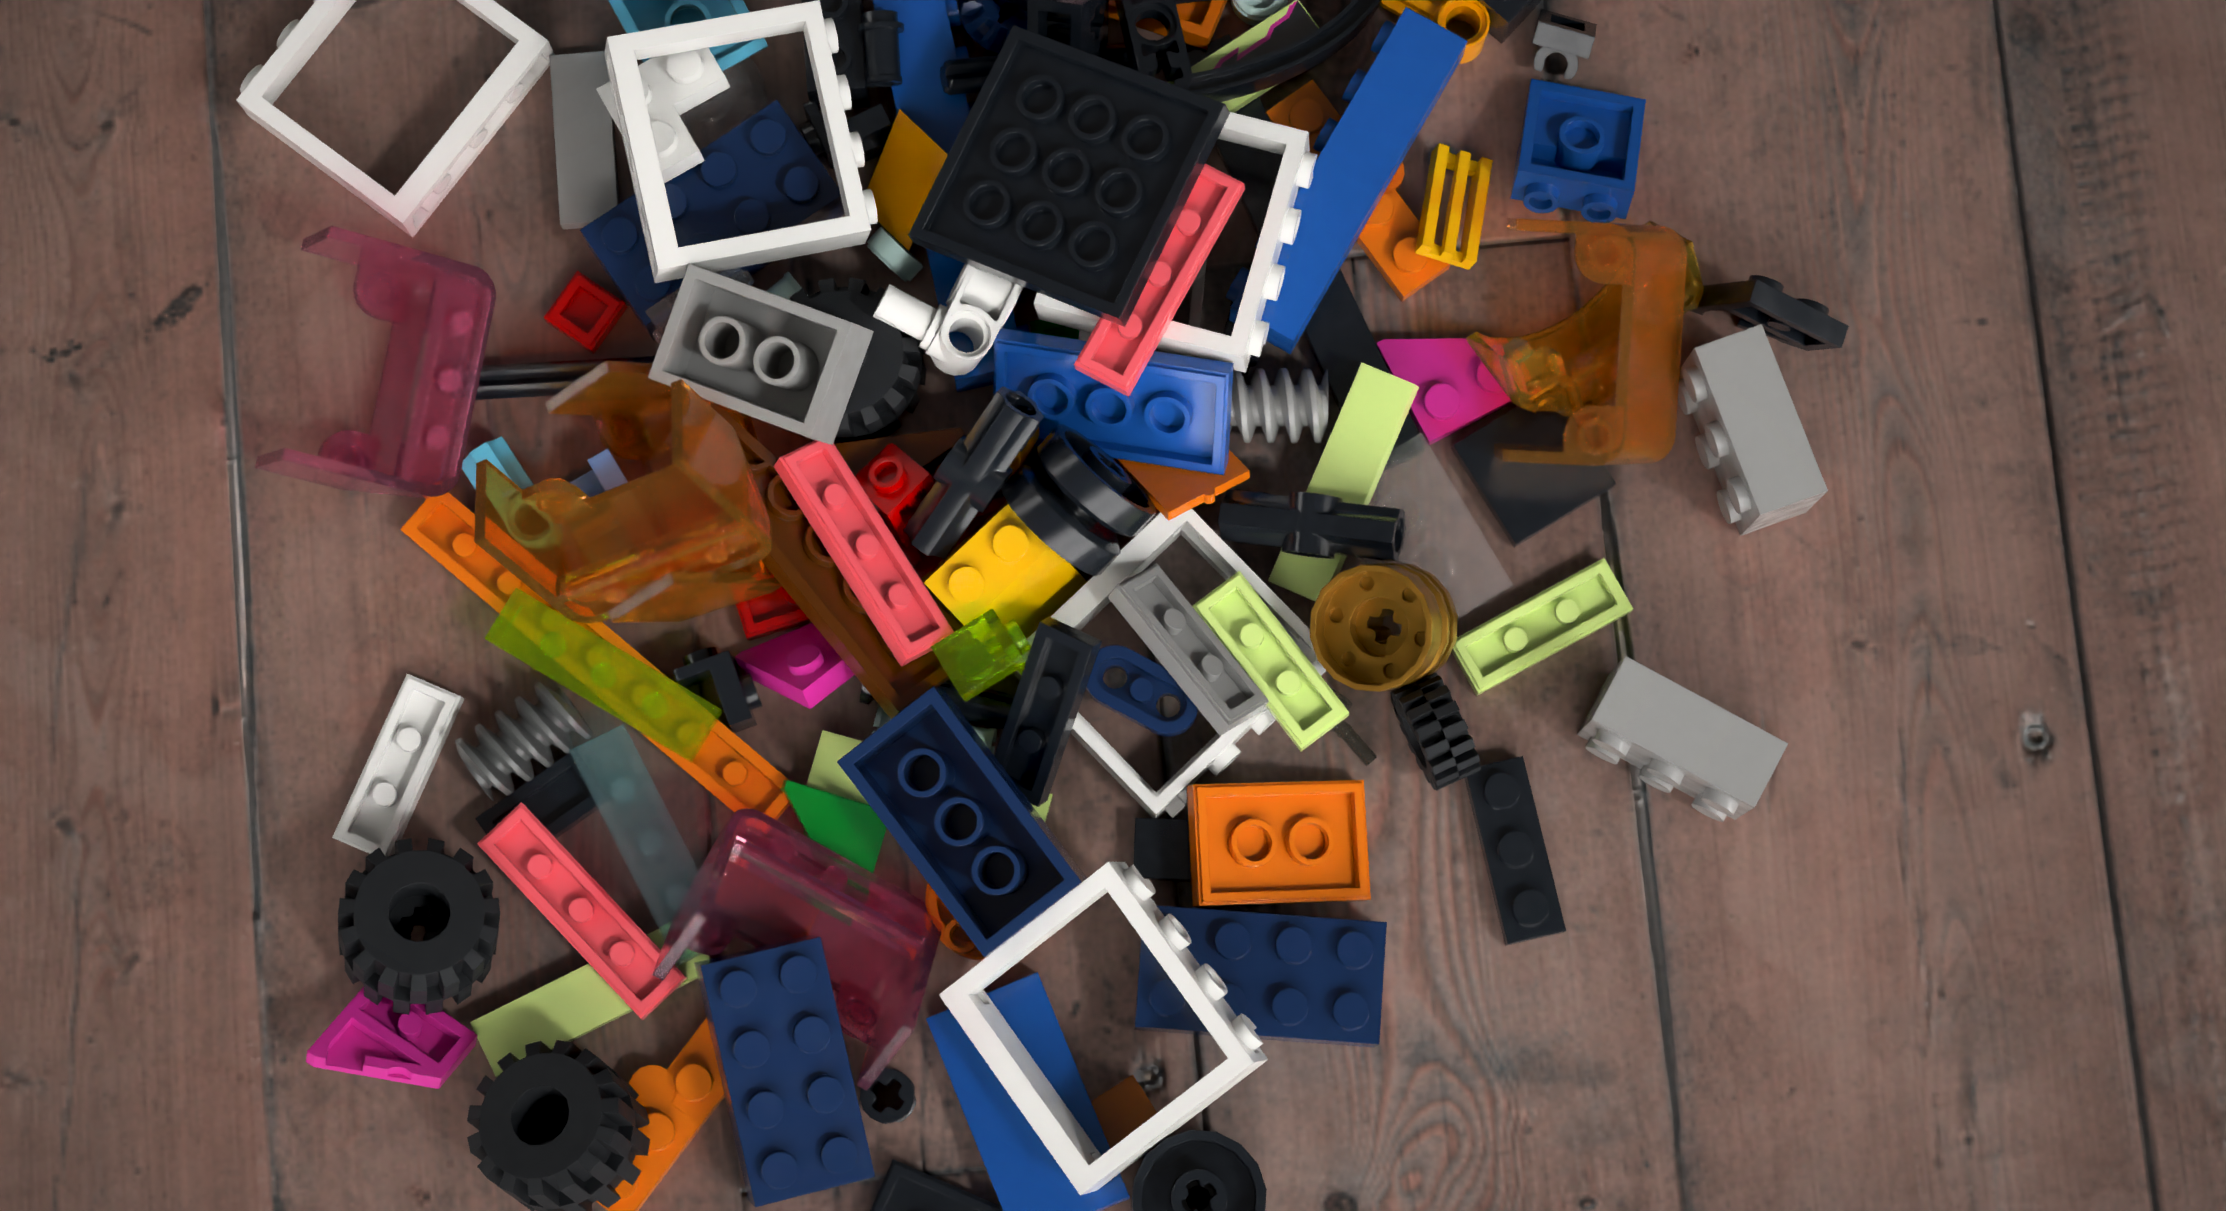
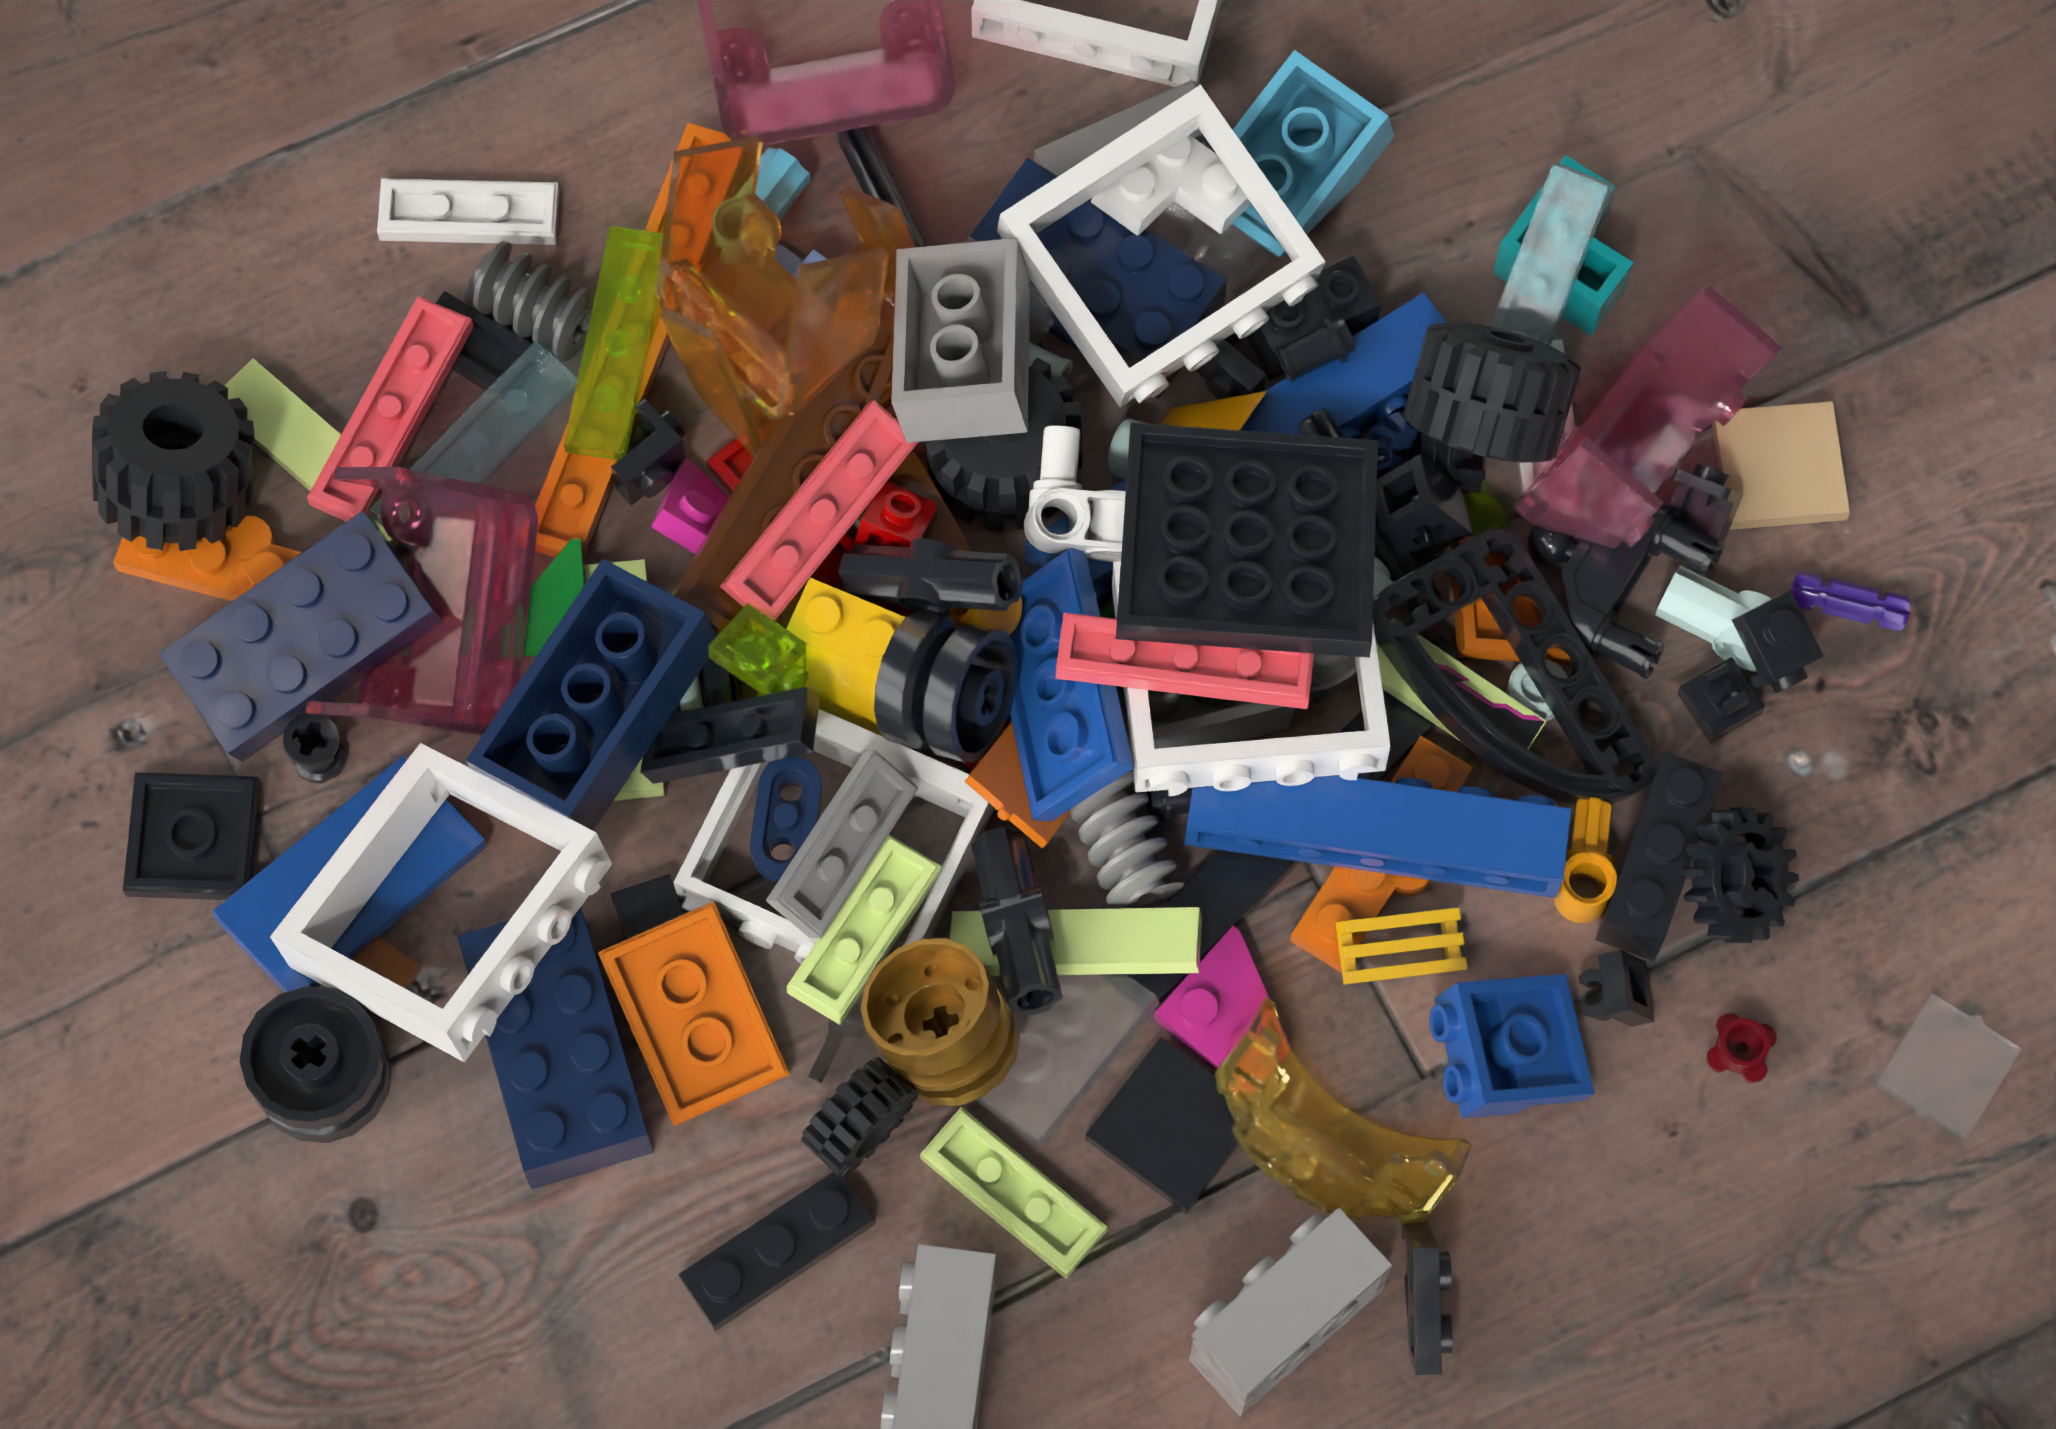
camera: 70 degrees right, 10 degrees down
(392, 1045) = (213, 294): dark pink wing -> none
(410, 892) = (337, 244): black wheel -> none
(585, 312) = (959, 204): red tile -> none
(1652, 274) = (1326, 1164): clear orange windscreen -> none

